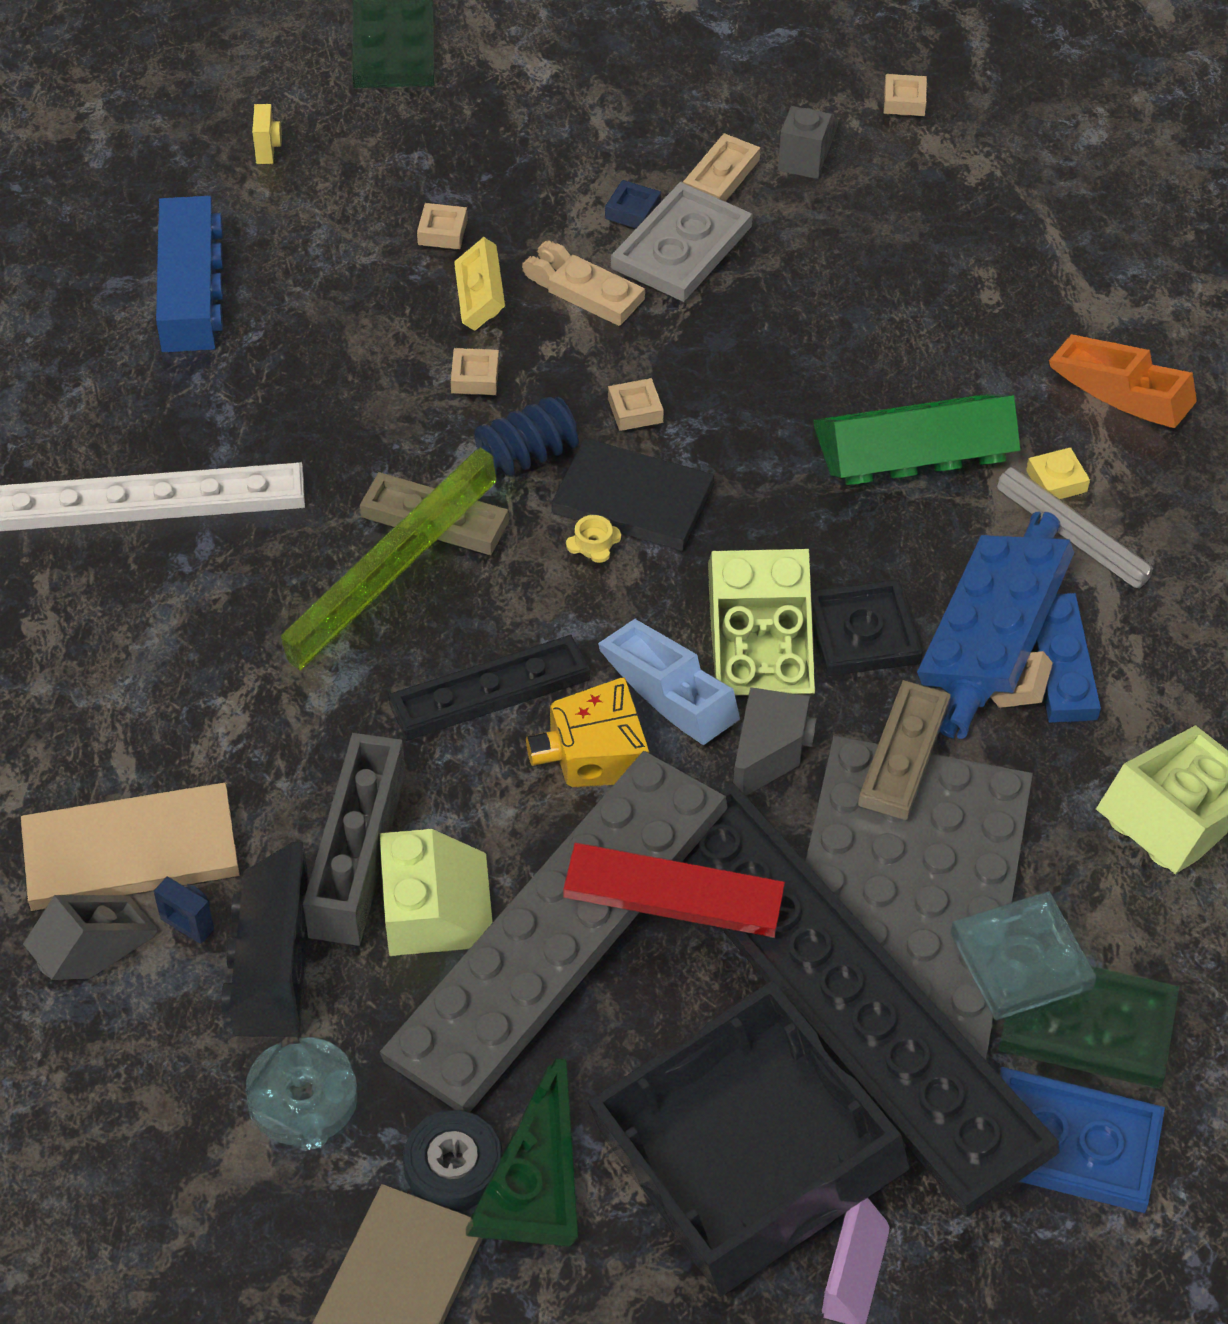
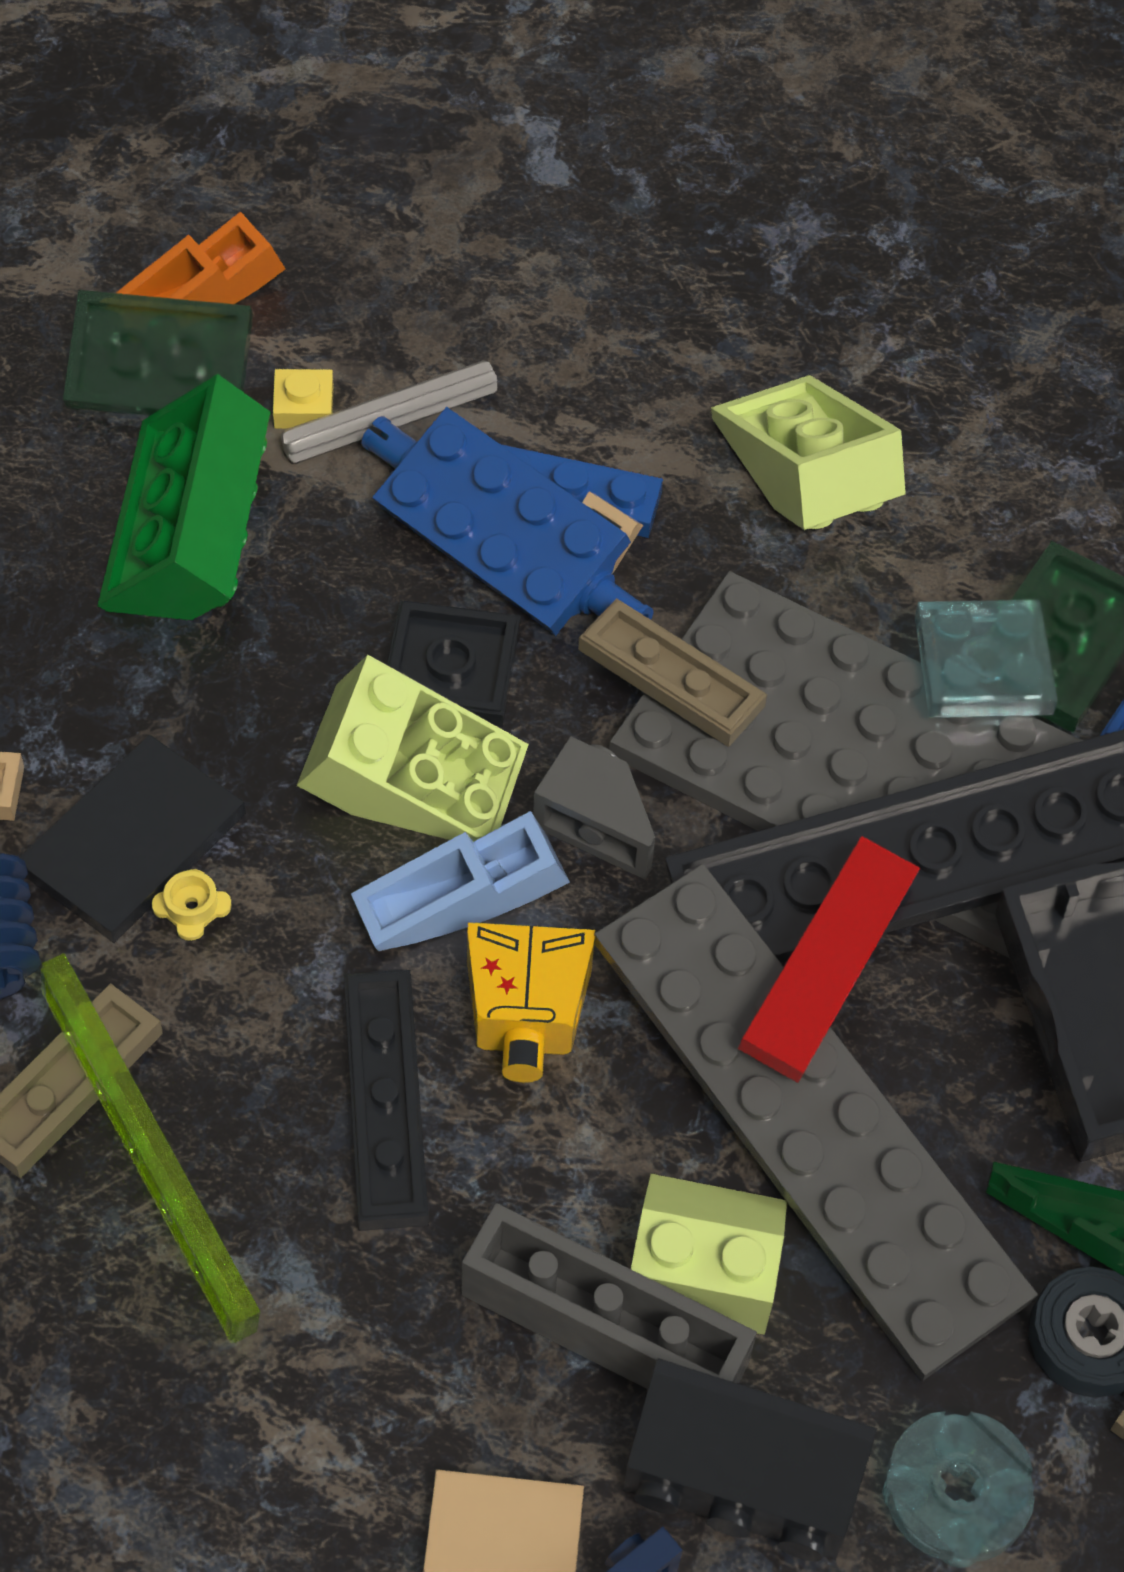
camera: 75 degrees left, 5 degrees up
(1042, 372) = (151, 350): none -> clear green plate

